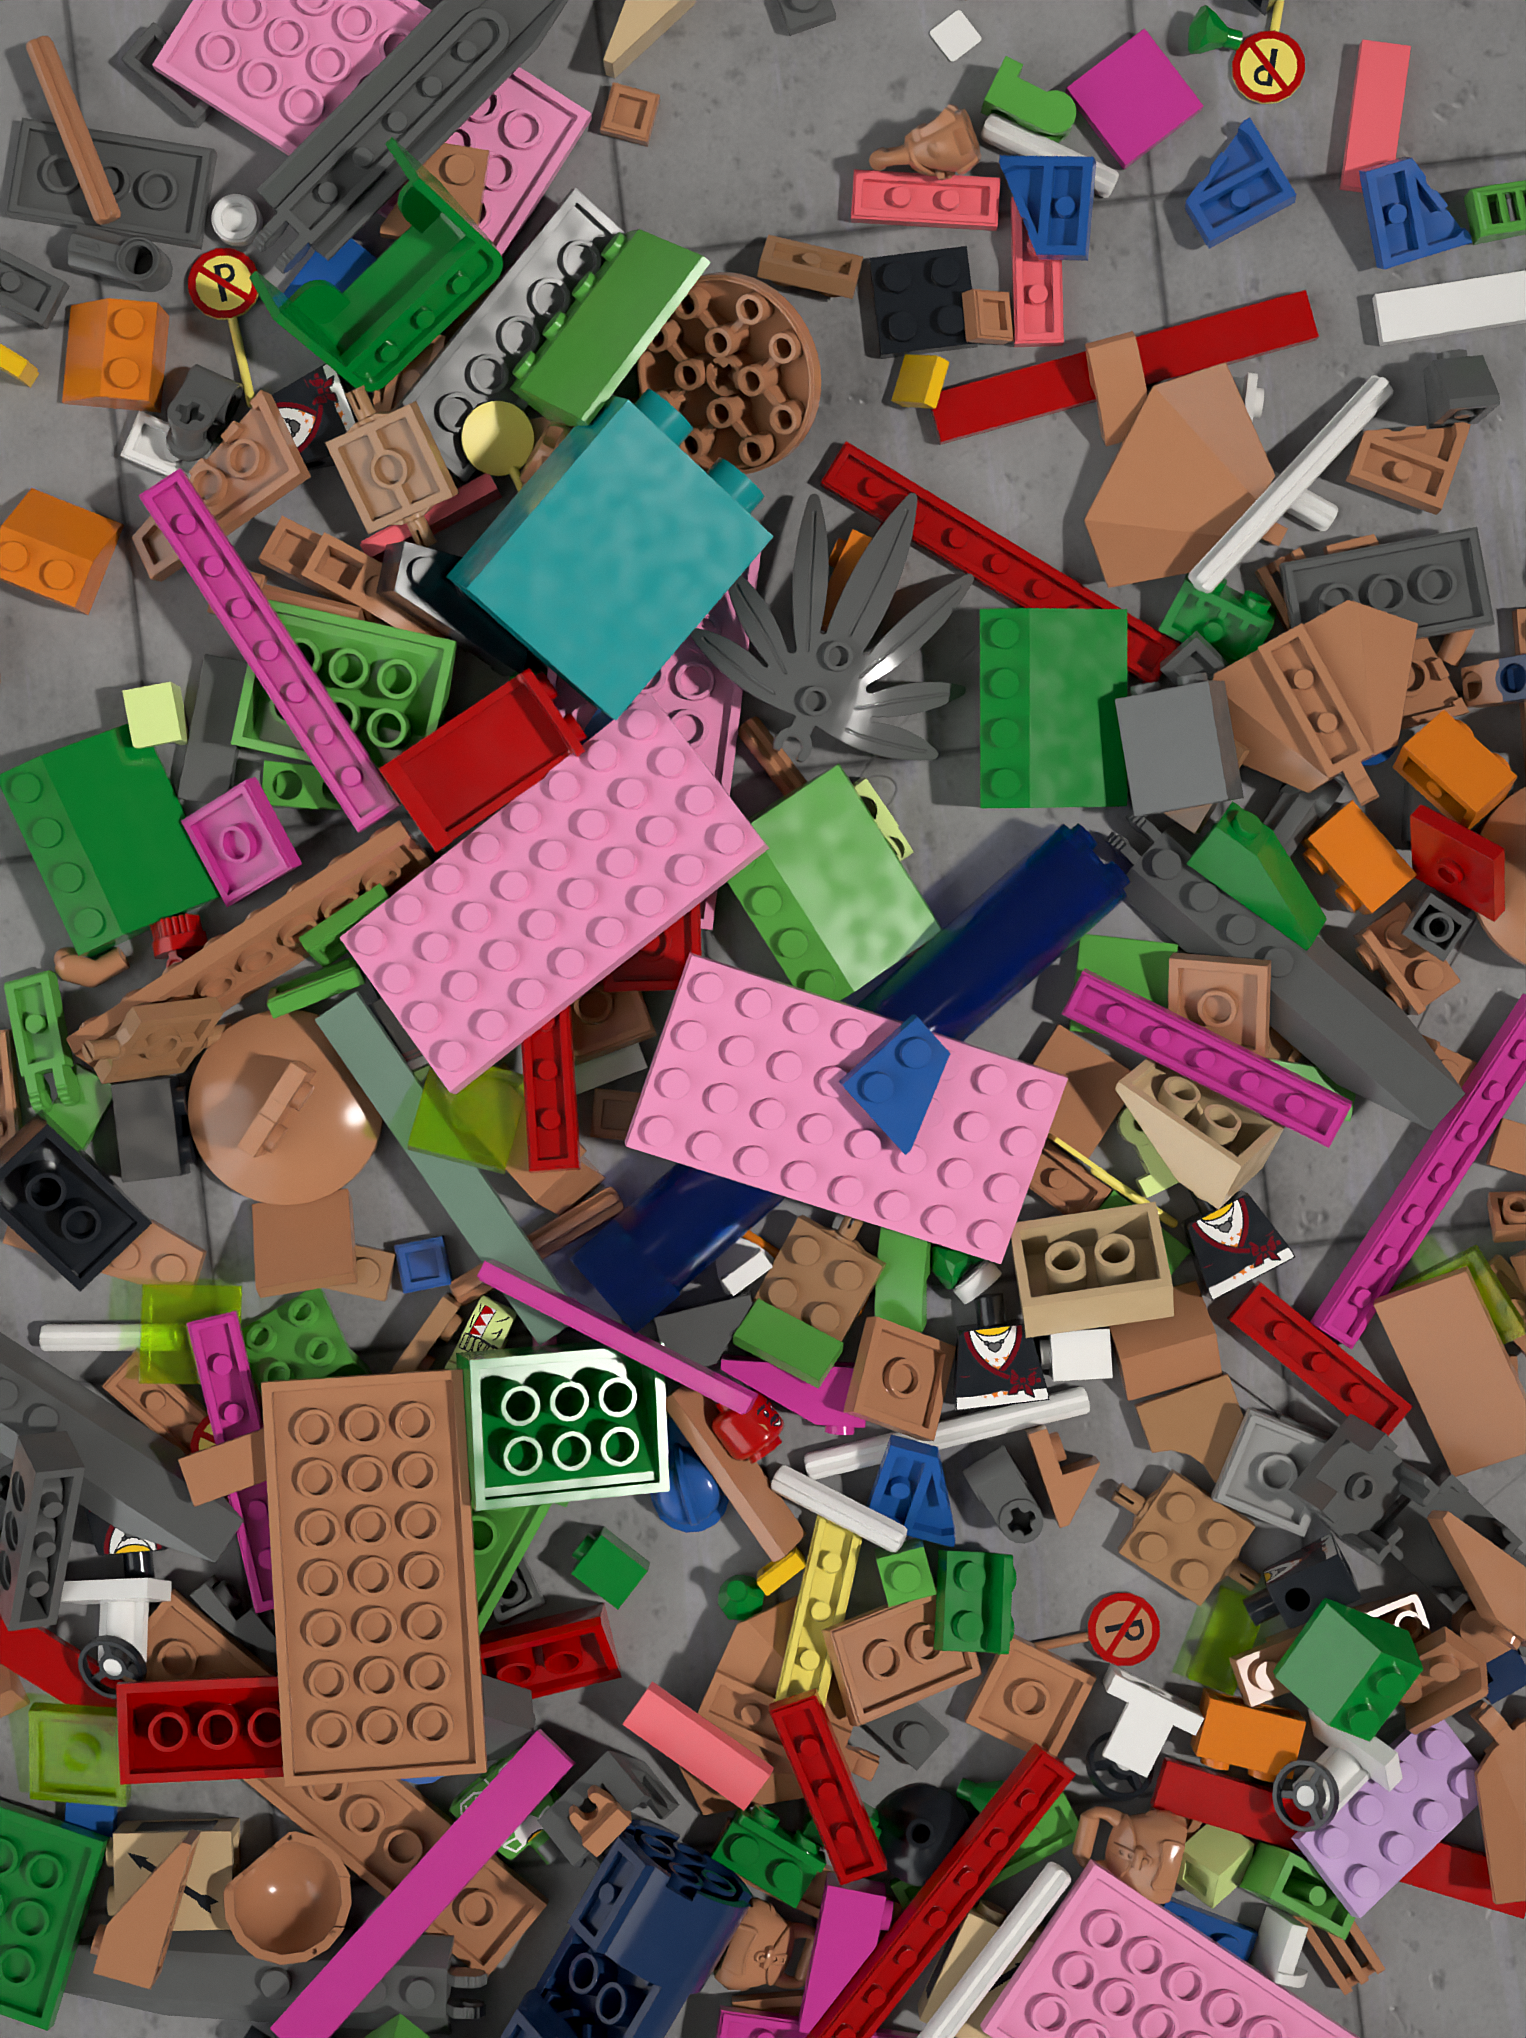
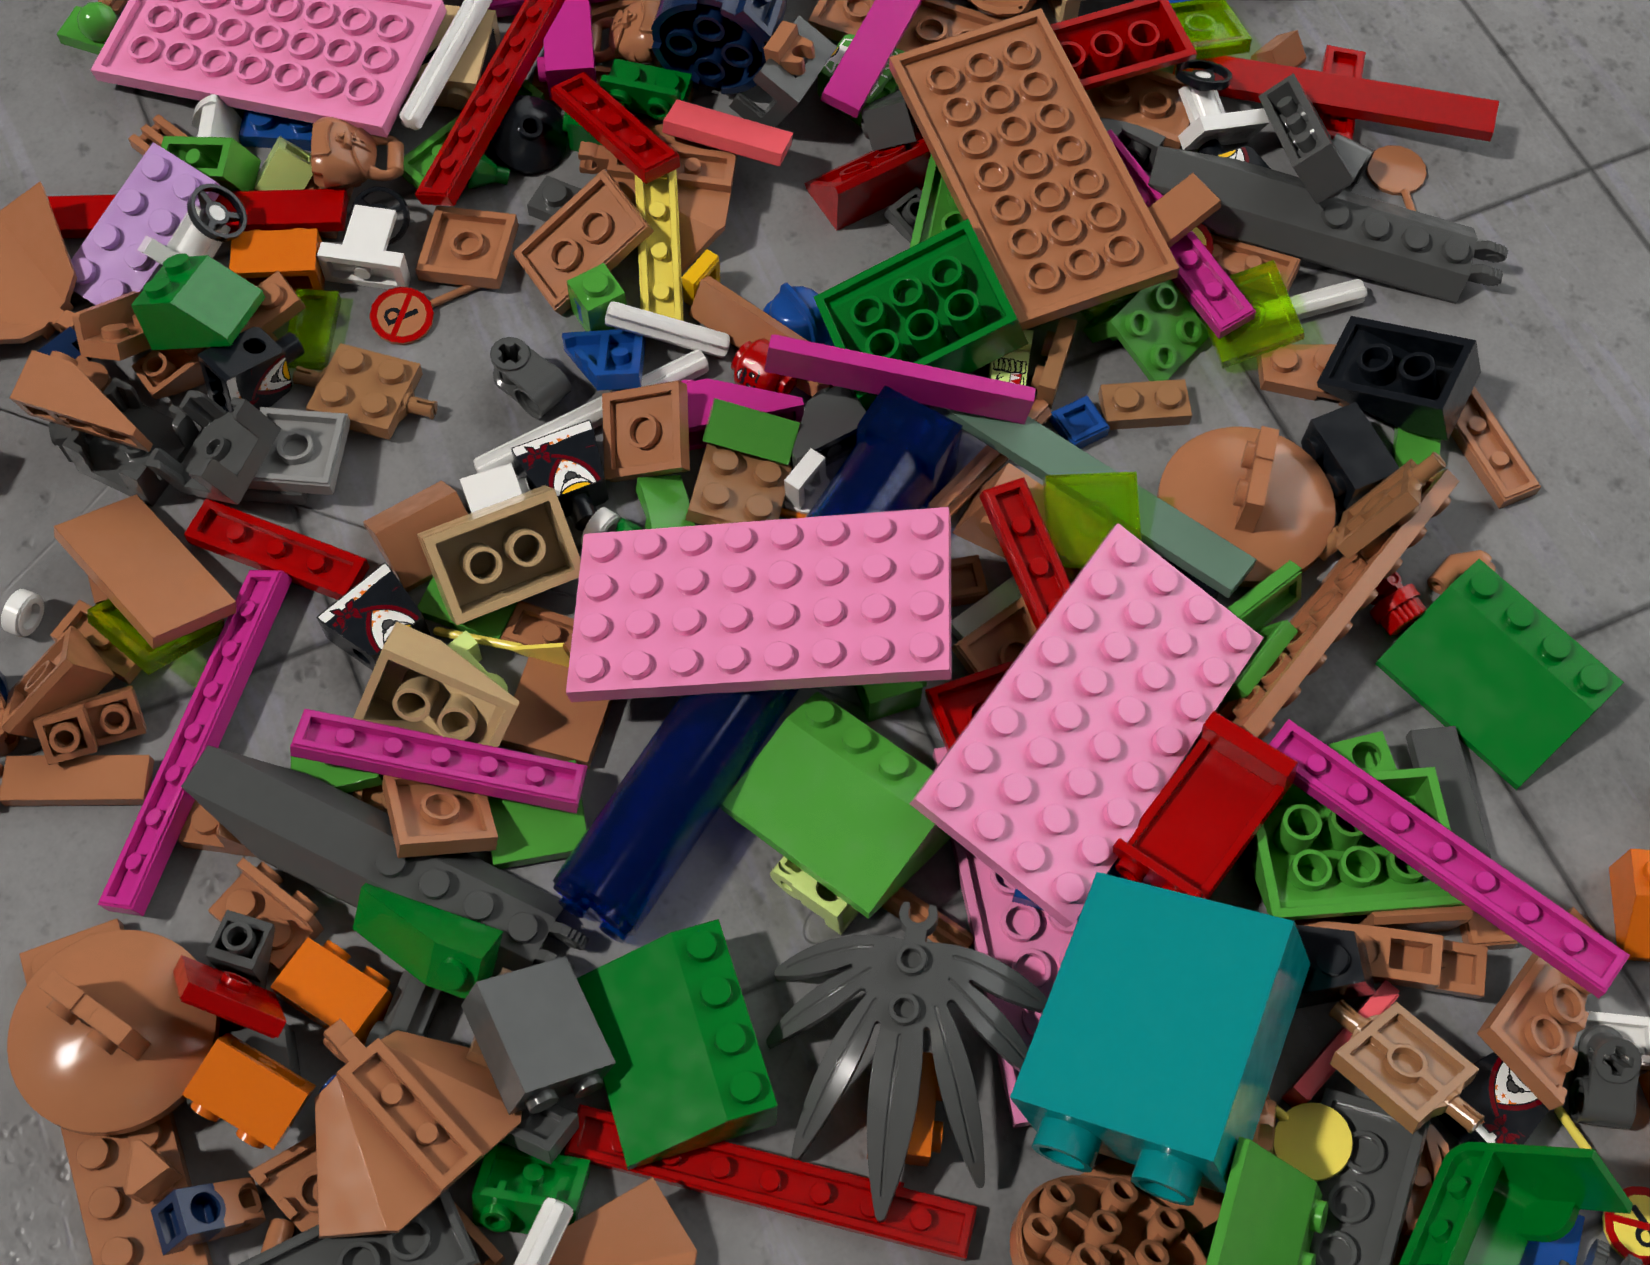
camera: 155 degrees right, 25 degrees down
(41, 1039) = (1478, 499): bright green hinge -> none
(156, 715) = (1507, 786): yellowish green panel -> none
(241, 841) = (1383, 699): dark pink tile -> none
(304, 1245) = (1184, 400): nougat tile -> none
(609, 1566) = (841, 245): green brick -> none
(740, 1597) = (731, 256): green rock -> none
(899, 1080) = (722, 629): blue wing -> none
(974, 1602) = (533, 294): green bracket -> none
(1064, 1484) = (483, 401): nougat slope -> none
(1194, 1421) = (379, 478): medium nougat tile -> none

